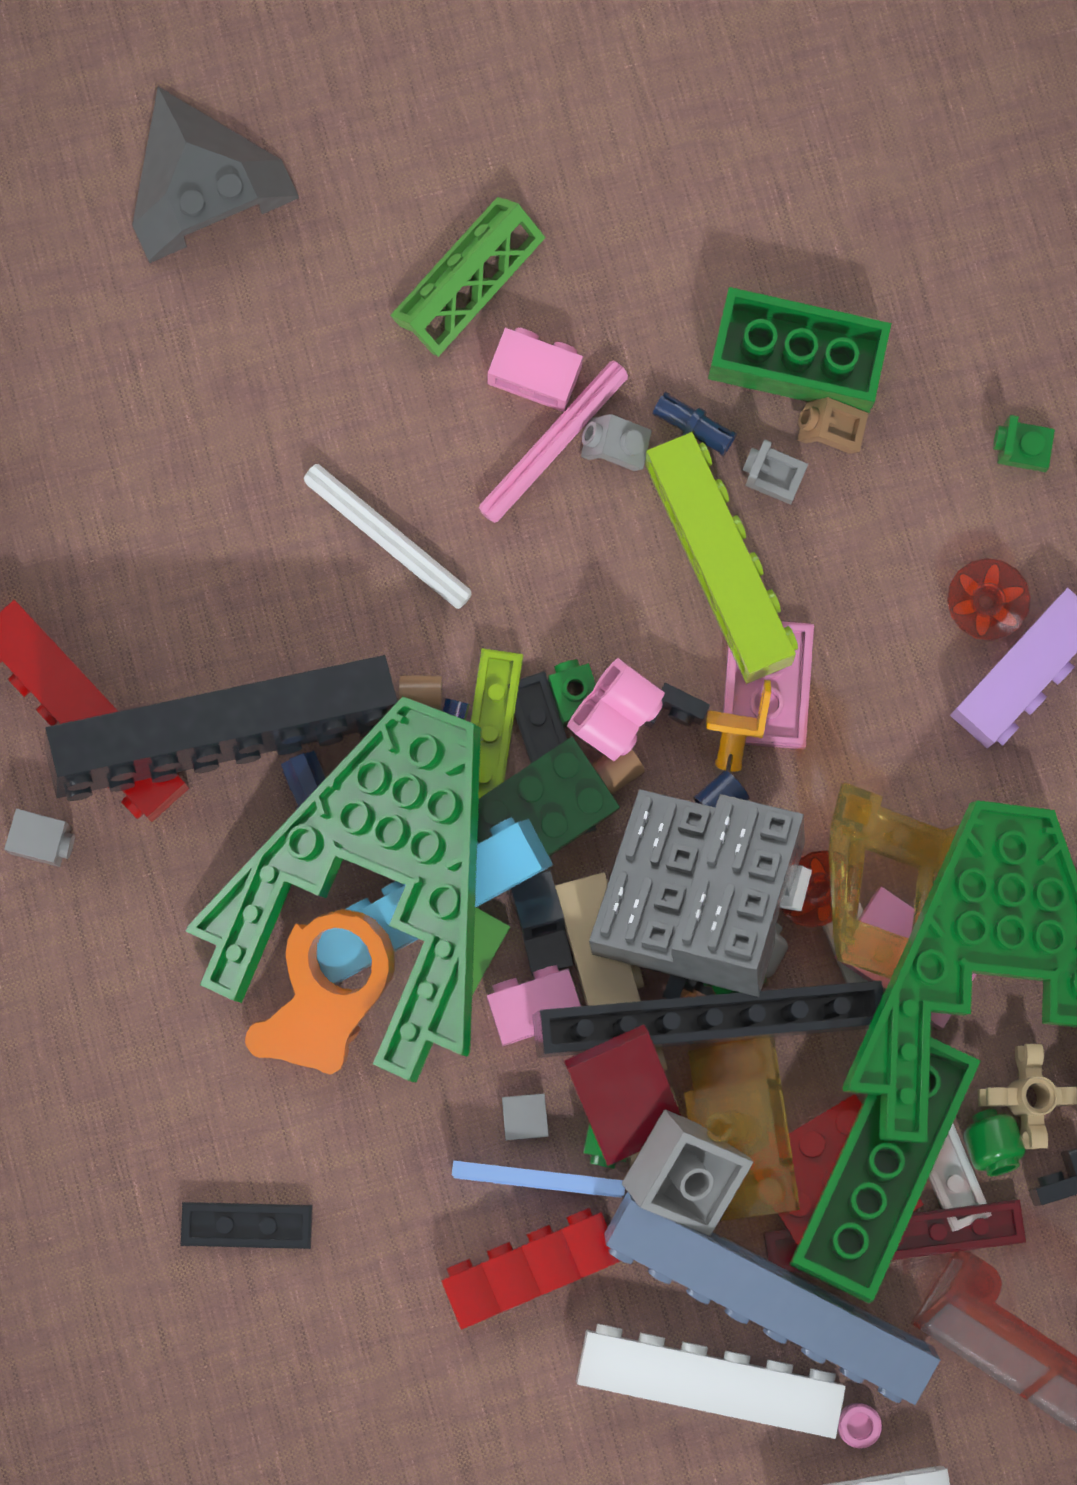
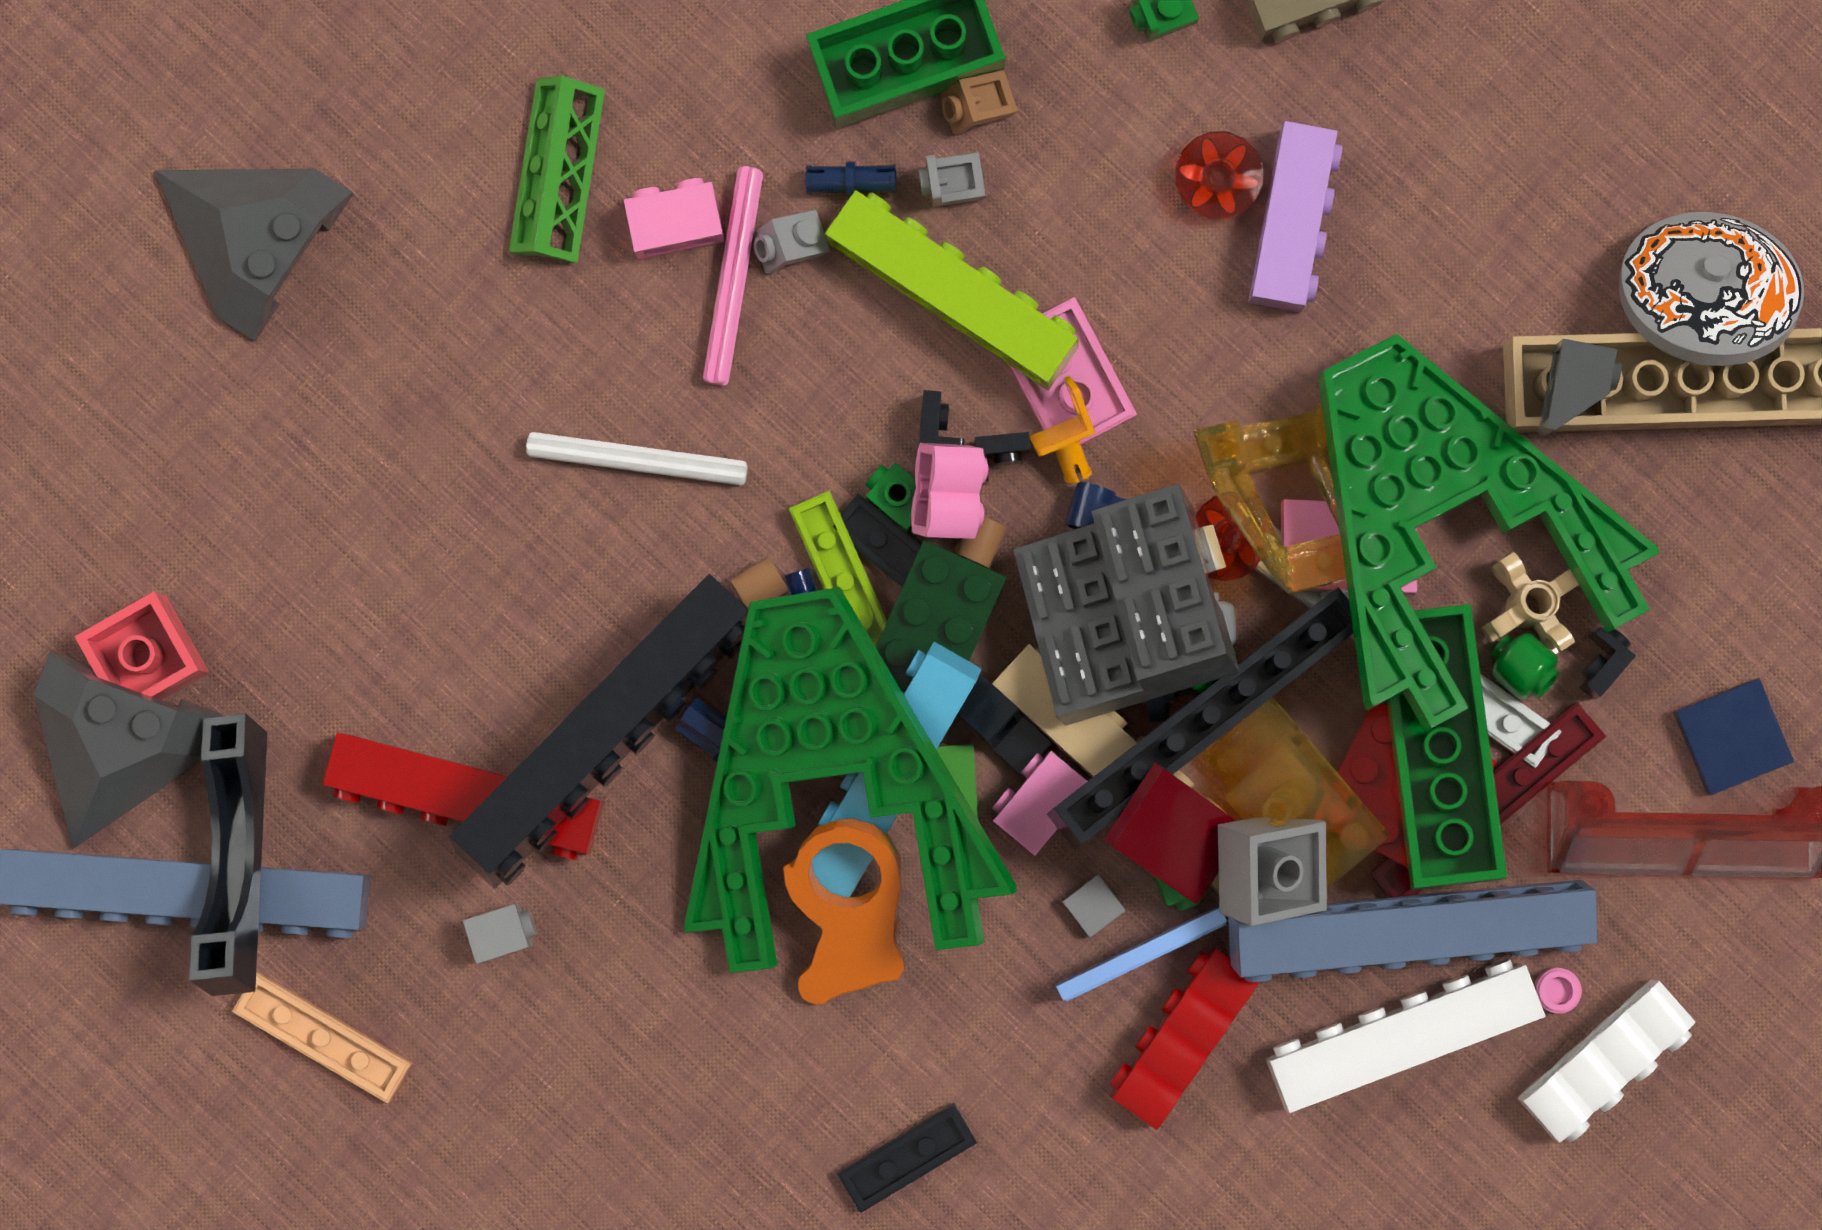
camera: 25 degrees left, 5 degrees up
(642, 649) = (934, 418): none -> black bracket

